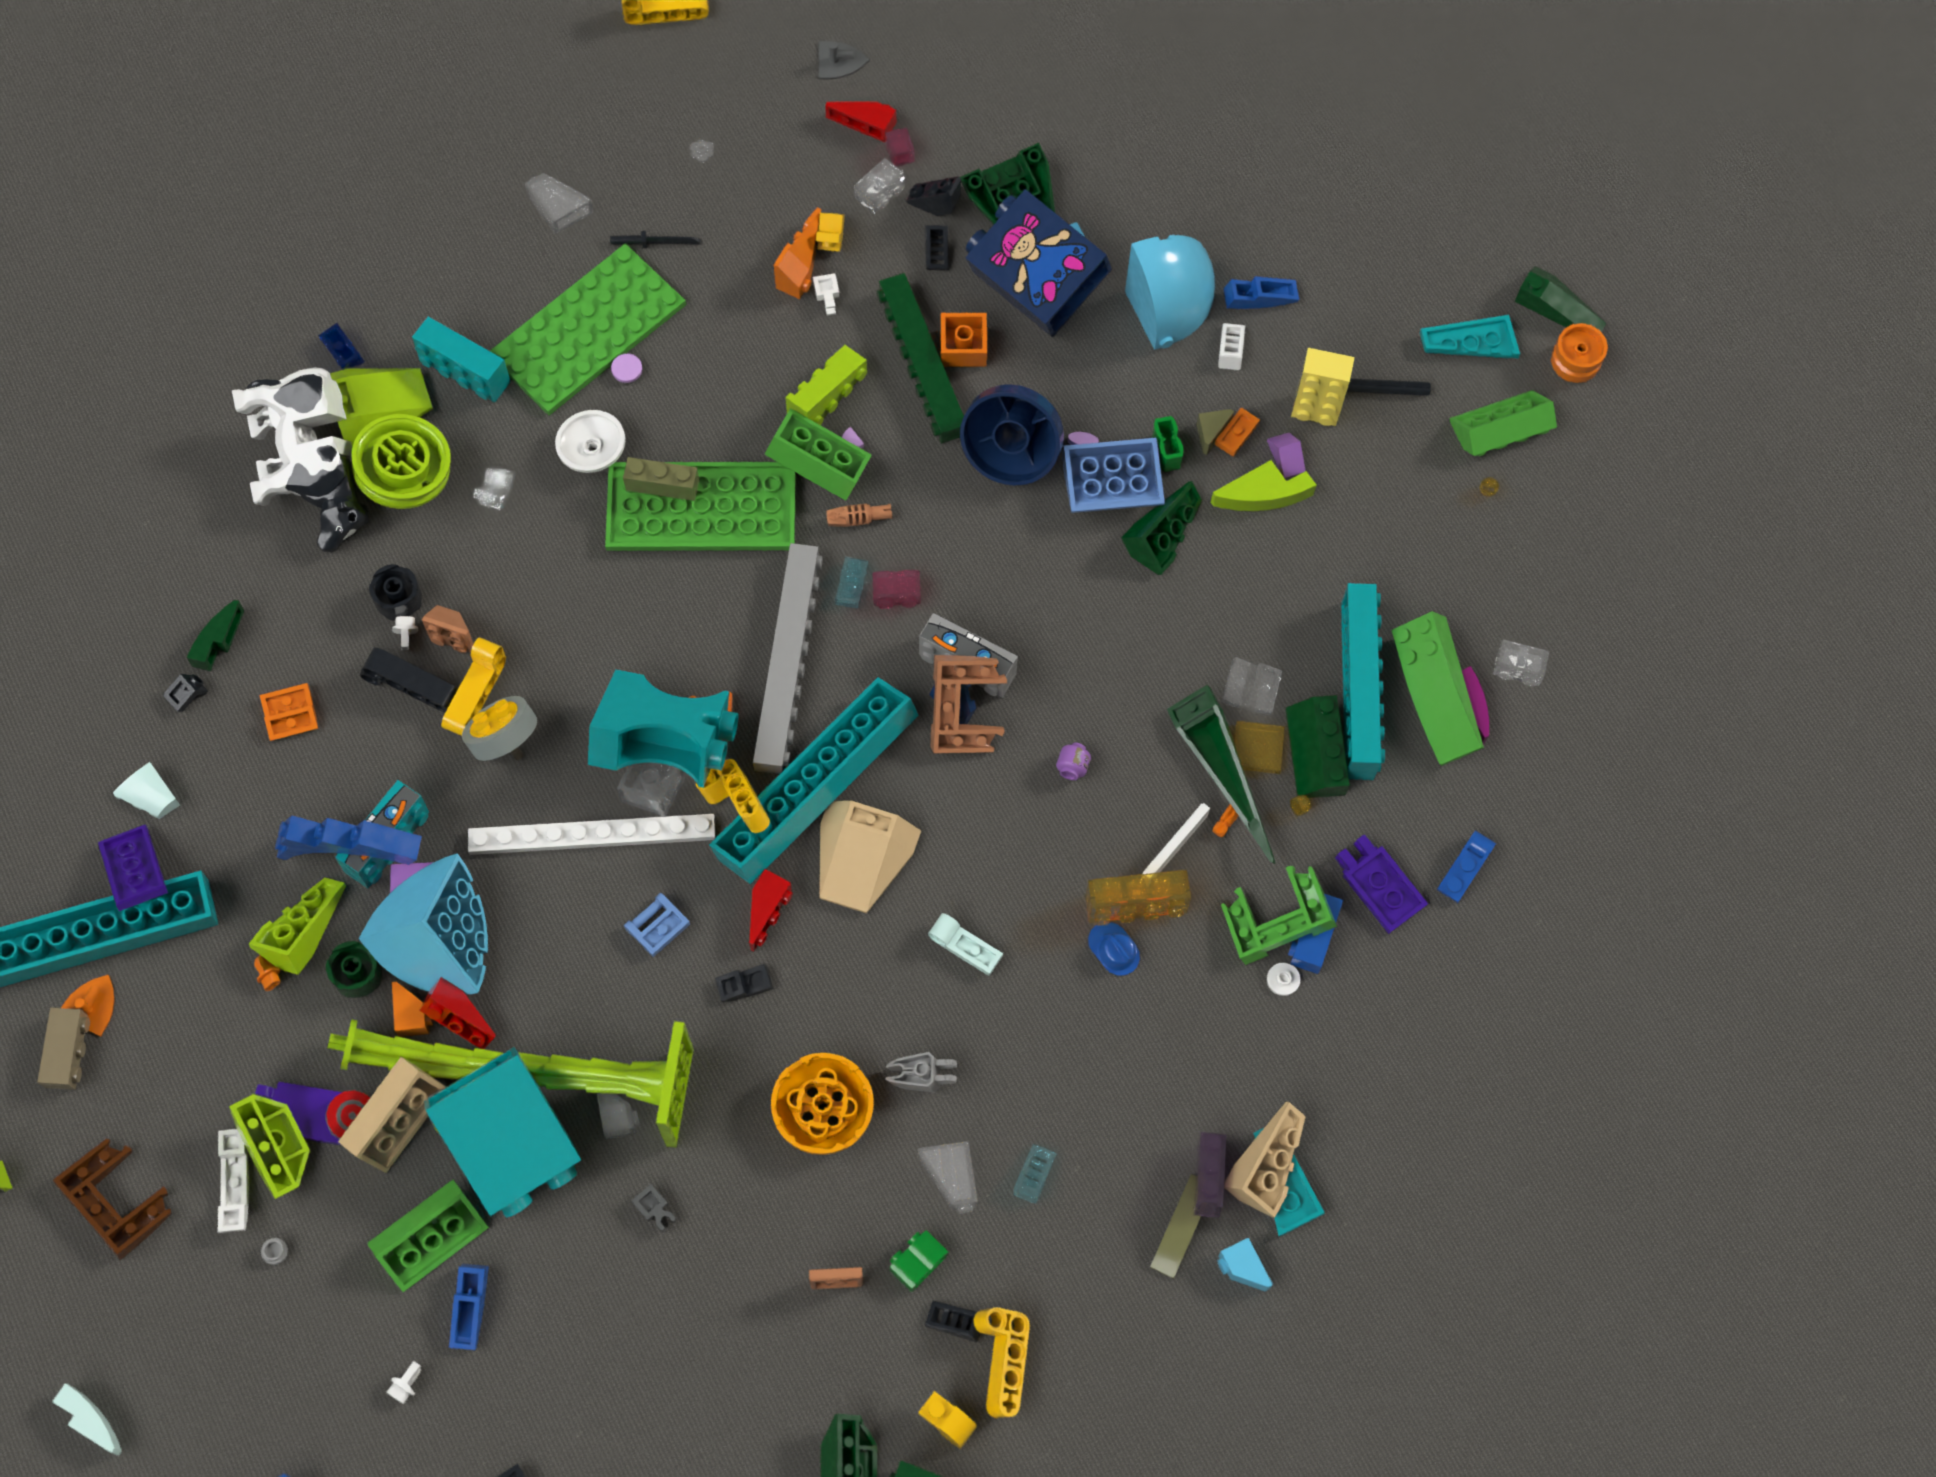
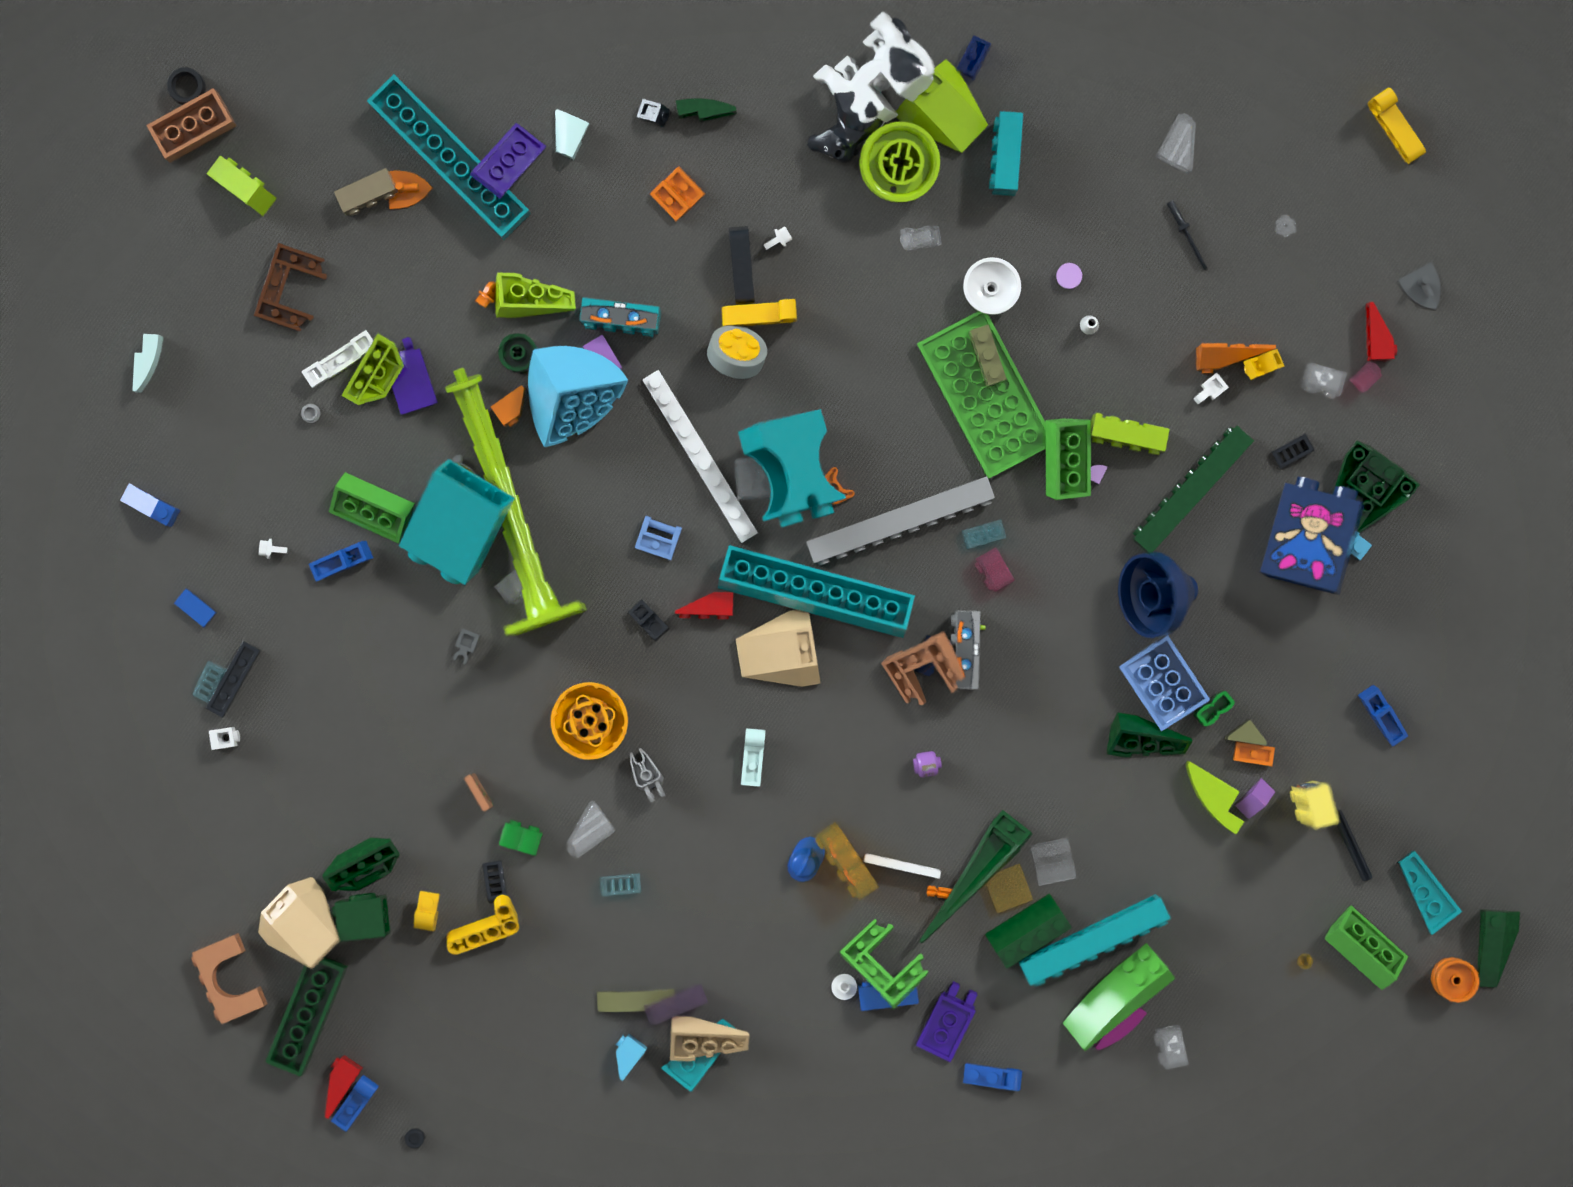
camera: 65 degrees right, 20 degrees up
(343, 1111) = (421, 411): red tile -> none
(368, 839) = (596, 299): blue arch -> none
(391, 1116) = (433, 439): tan slope -> none
(395, 591) = (801, 204): black brick -> none
(448, 628) = (796, 268): nougat slope -> none
(456, 1012) = (525, 437): red slope -> none
(587, 328) = (1087, 227): bright green plate -> none
(689, 370) = (1086, 328): none -> white cone
(734, 784) = (775, 548): yellow beam -> none
(857, 515) = (1038, 510): nougat hinge -> none
(936, 196) = (1335, 427): black slope -> none
(964, 339) = (1221, 513): orange brick -> none
(1081, 438) = (1185, 643): lavender piece -> none
(1170, 287) = (1344, 650): medium azure brick -> none
(1229, 358) = (1315, 718): white slope -> none
(1300, 804) = (978, 939): clear yellow hinge -> none

